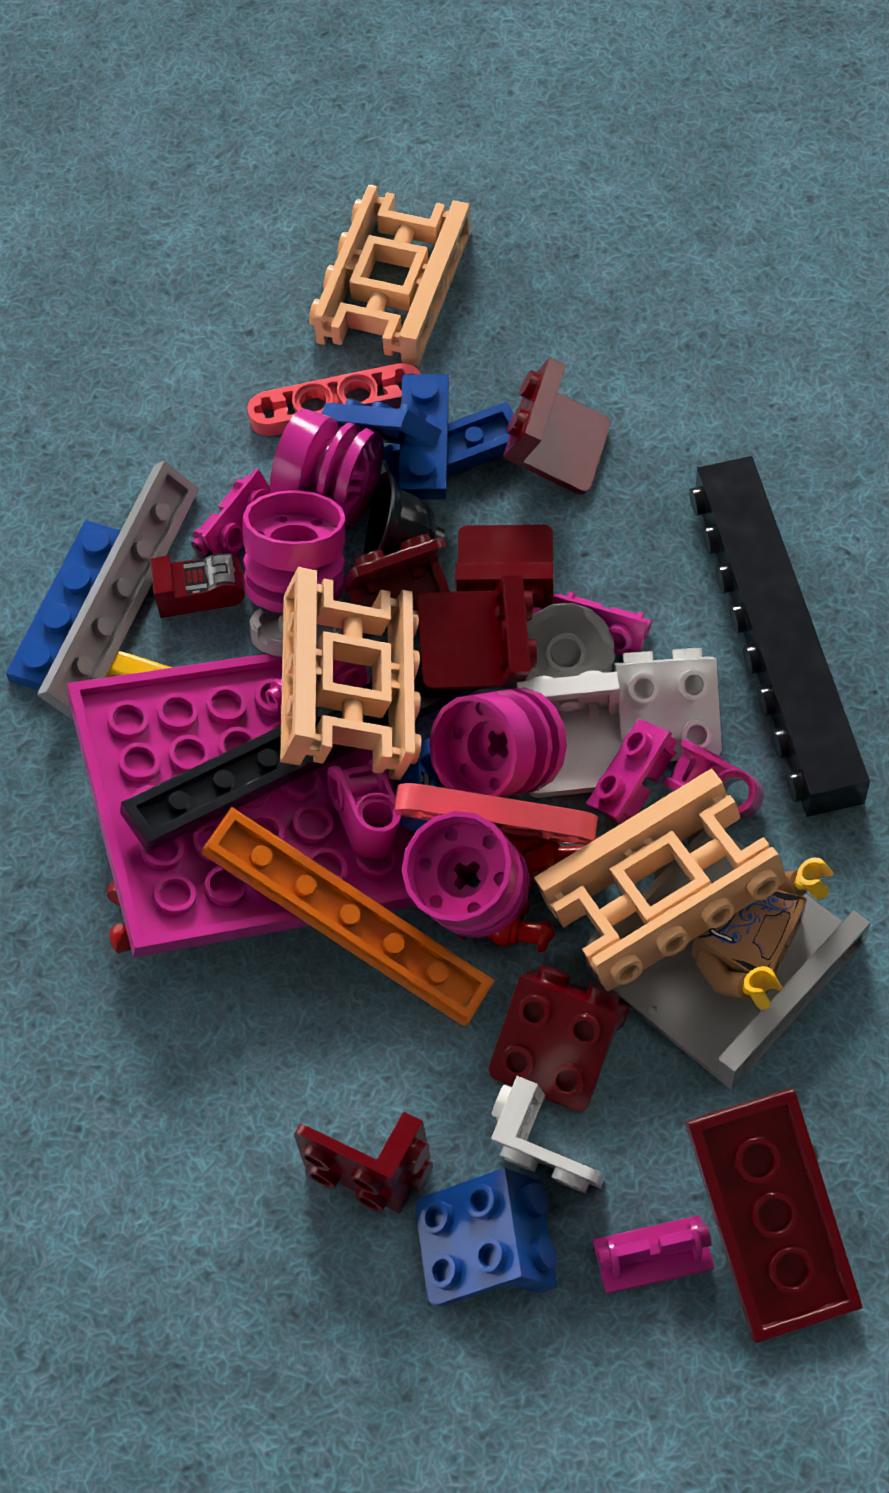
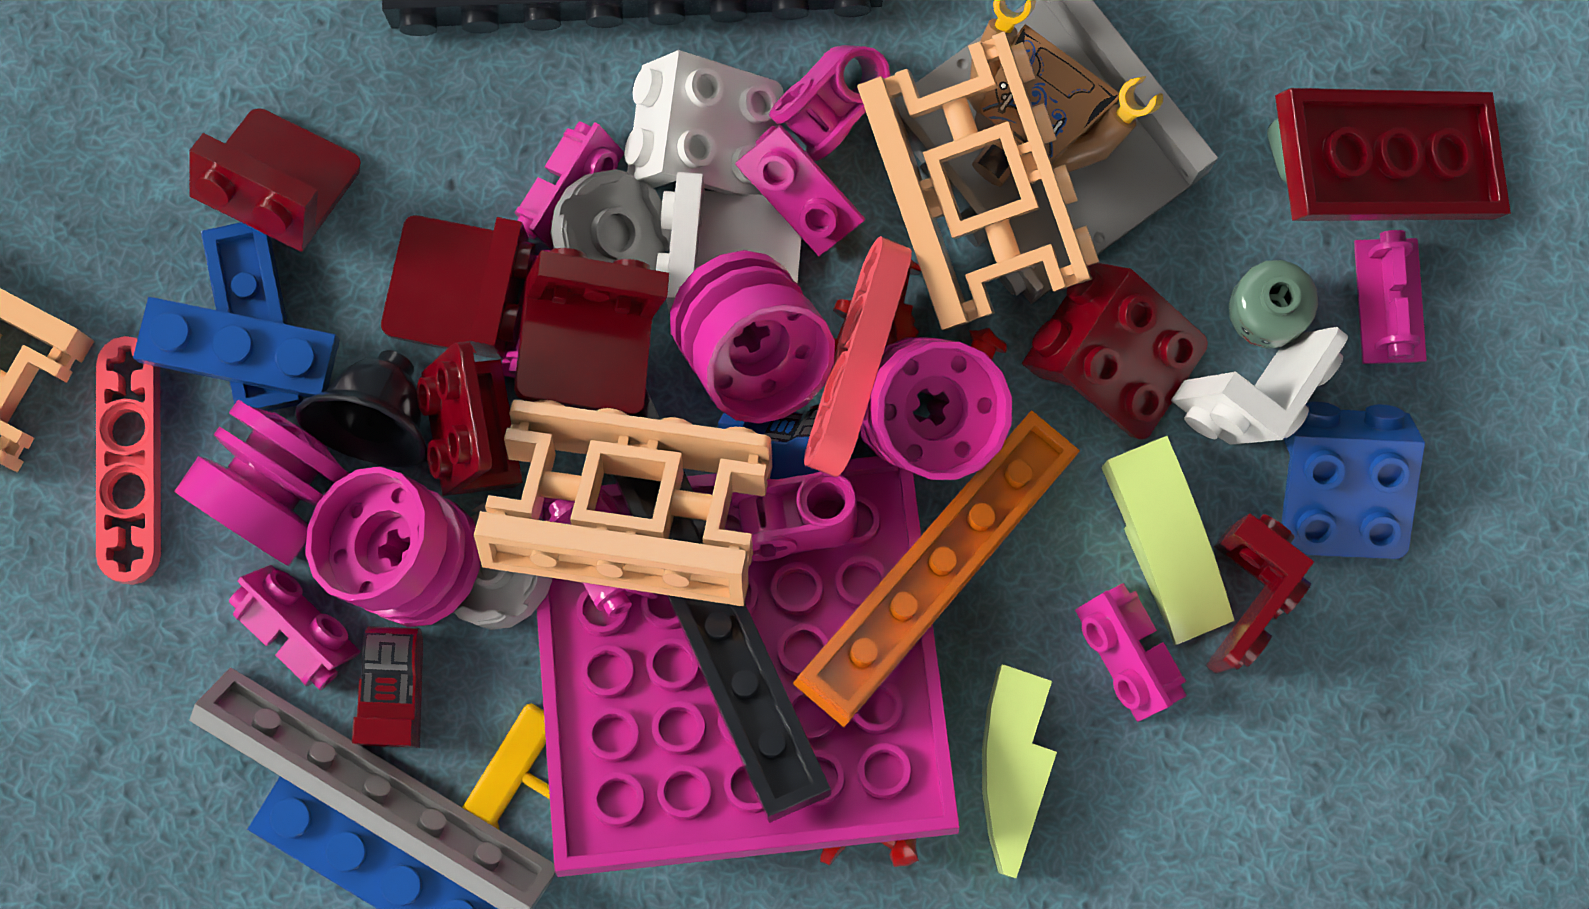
camera: 85 degrees left, 20 degrees up
(200, 1012) = (1012, 766): none -> yellowish green slope
(326, 1077) = (1141, 679): none -> dark pink hinge
(397, 426) = (216, 397): blue plate -> none
(417, 1085) = (1169, 539): none -> yellowish green slope
(622, 1145) = (1253, 308): none -> sand green head

